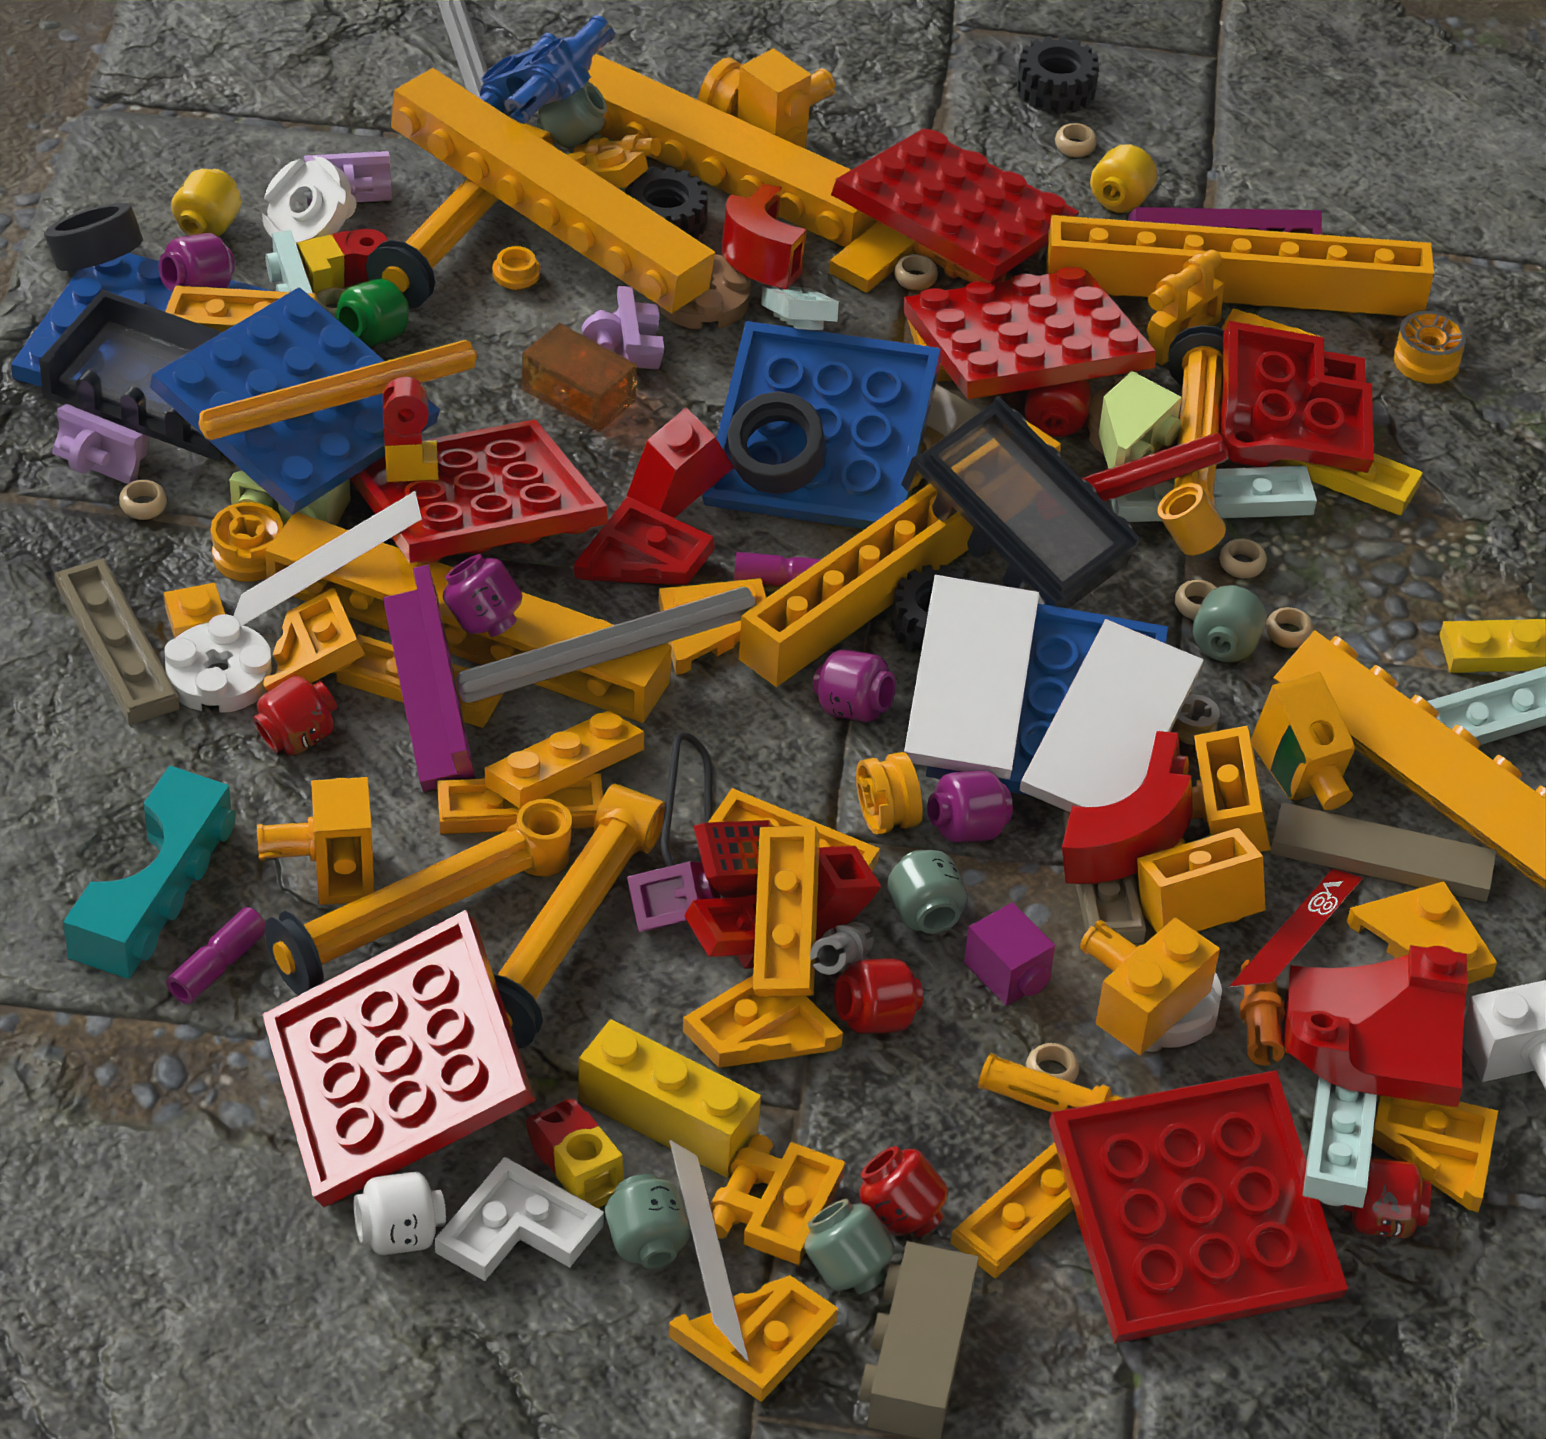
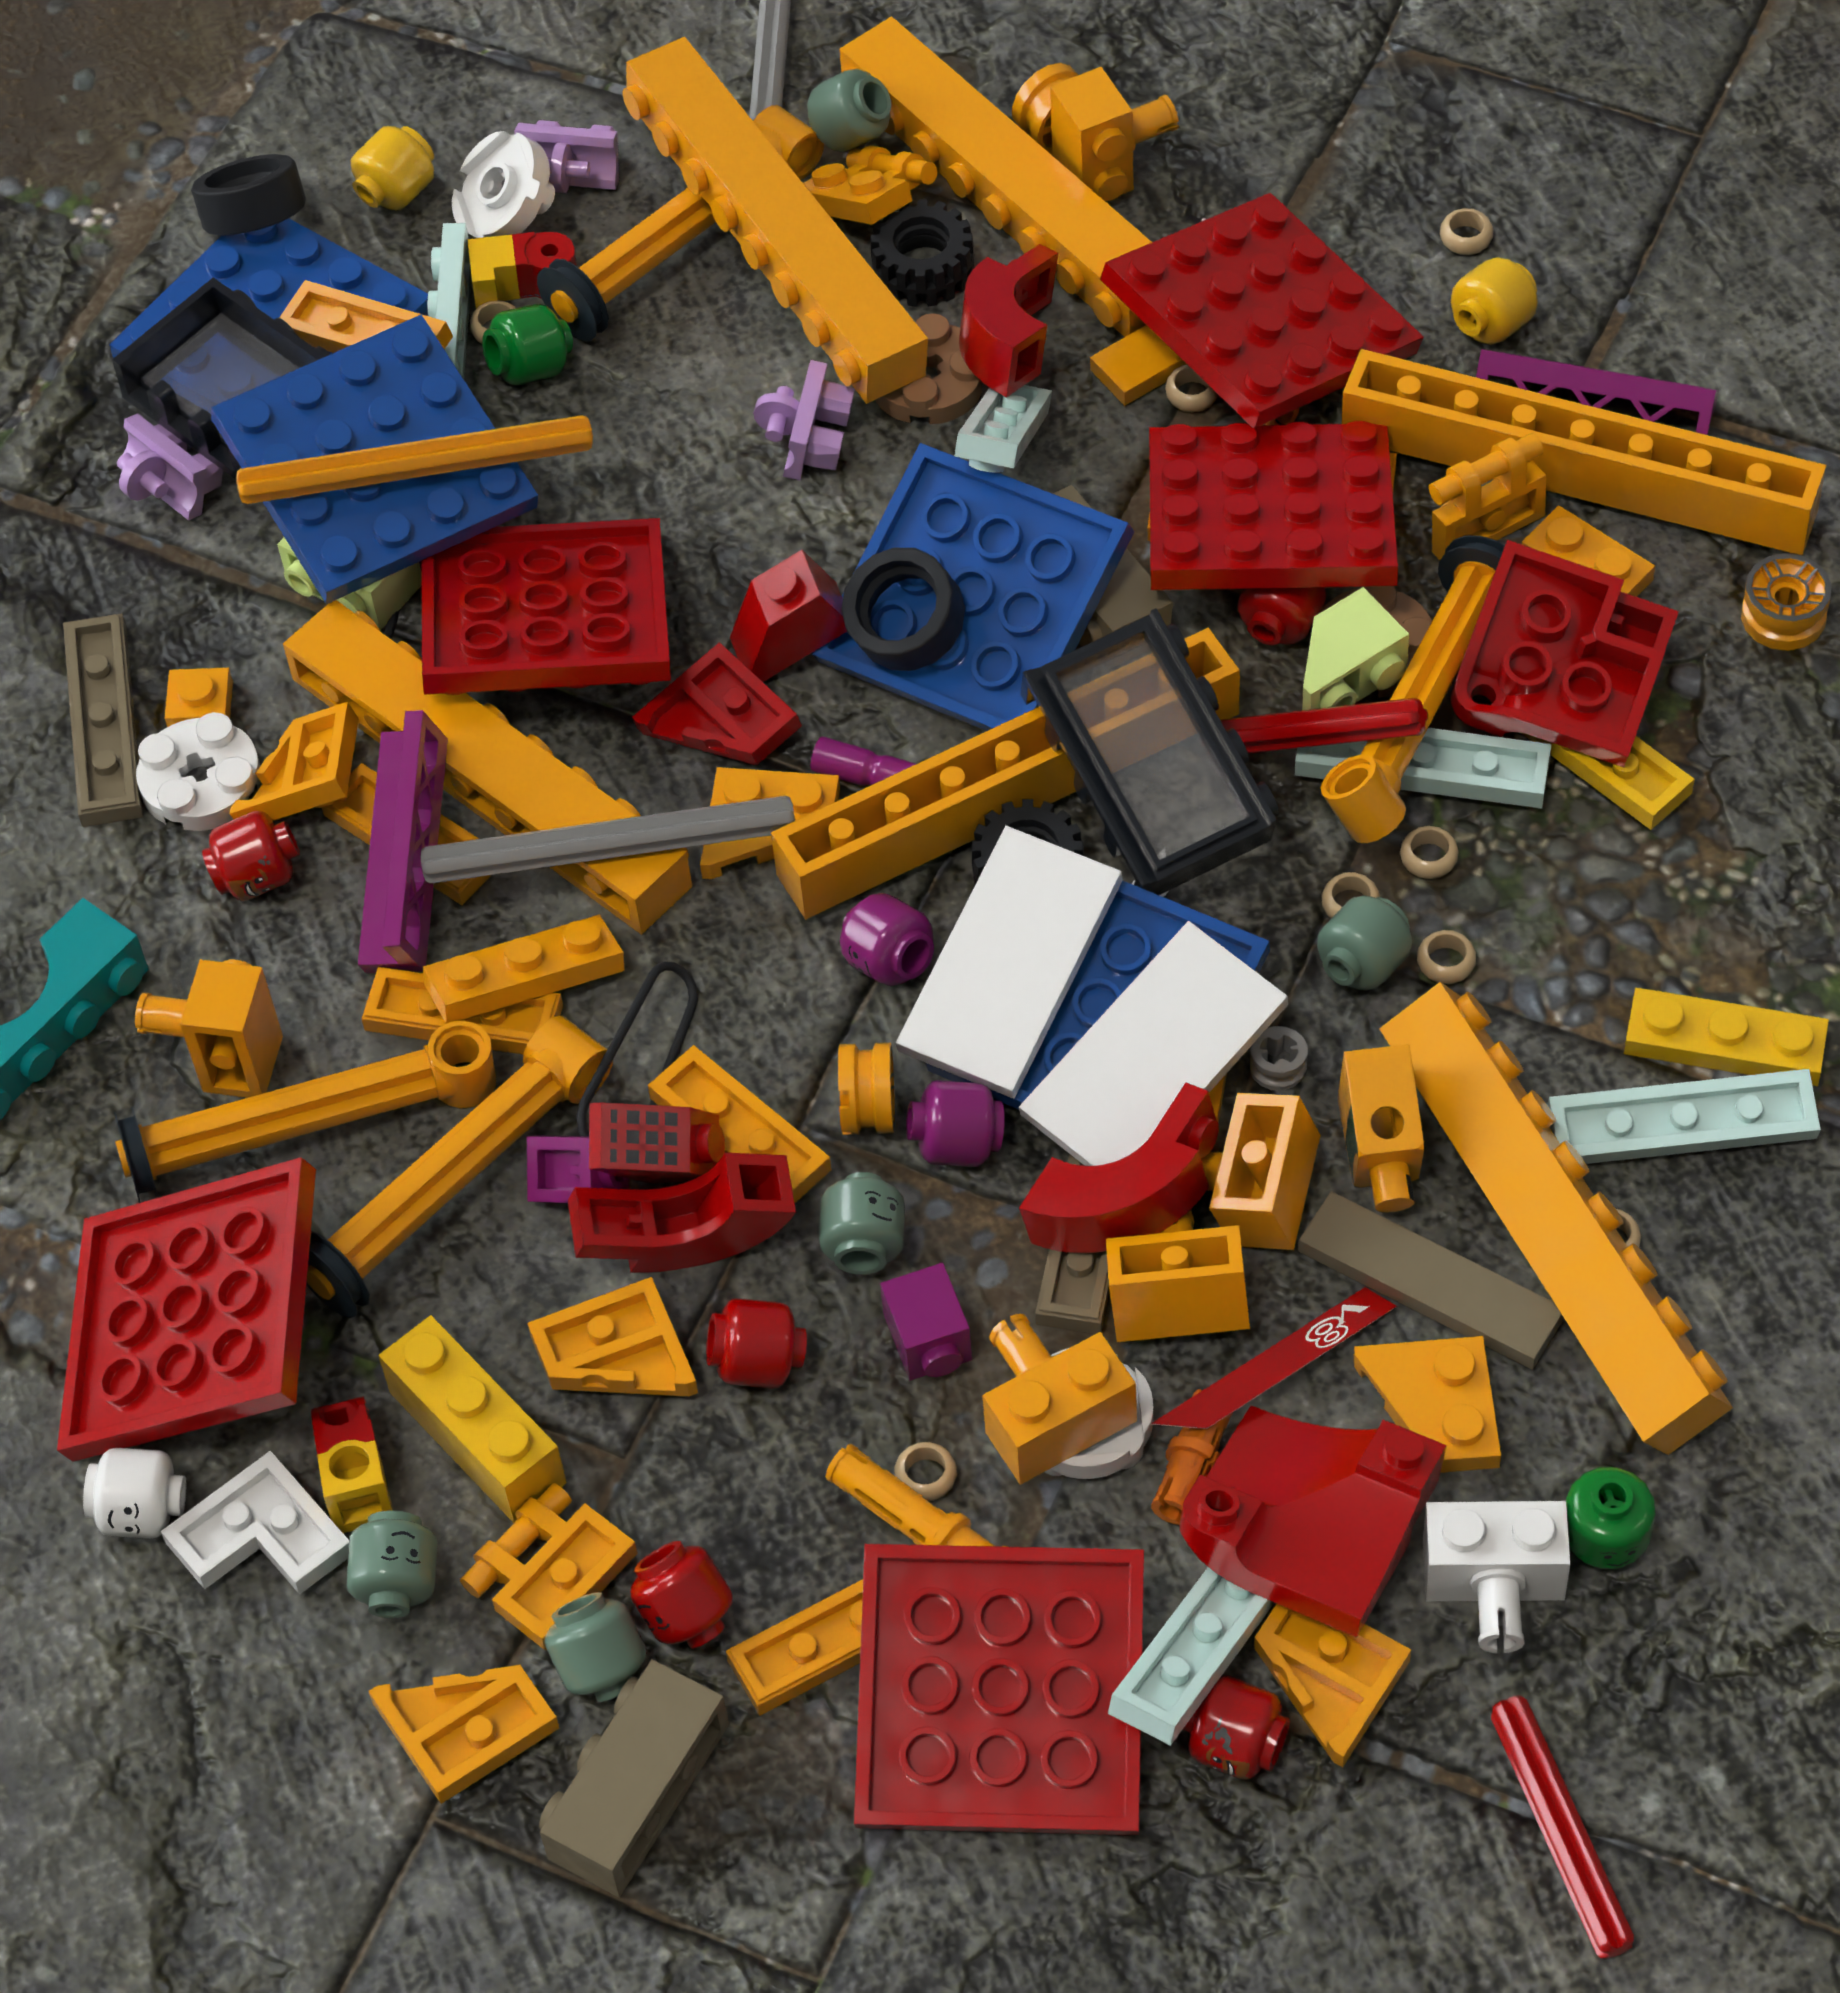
camera: 25 degrees right, 10 degrees up
(143, 511) = (196, 558): tan piece -> none
(197, 262) = (340, 255): magenta head -> none
(211, 960) = (61, 1138): magenta piece -> none
(240, 540) = (267, 603): light orange wheel -> none
(328, 558) = (342, 669): white sticker -> none
(403, 419) = (472, 528): leg -> none
(482, 596) = (480, 756): magenta head -> none
(516, 268) = (718, 308): light orange plate -> none
(545, 72) = (812, 61): blue piece -> none
(579, 377) = (731, 469): clear orange brick -> none
(707, 1246) = (441, 1609): white sticker -> none
(786, 911) = (670, 1224): light orange plate -> none
(829, 947) = (728, 1277): light grey pin -> none
(1058, 74) = (1477, 160): black tyre -> none

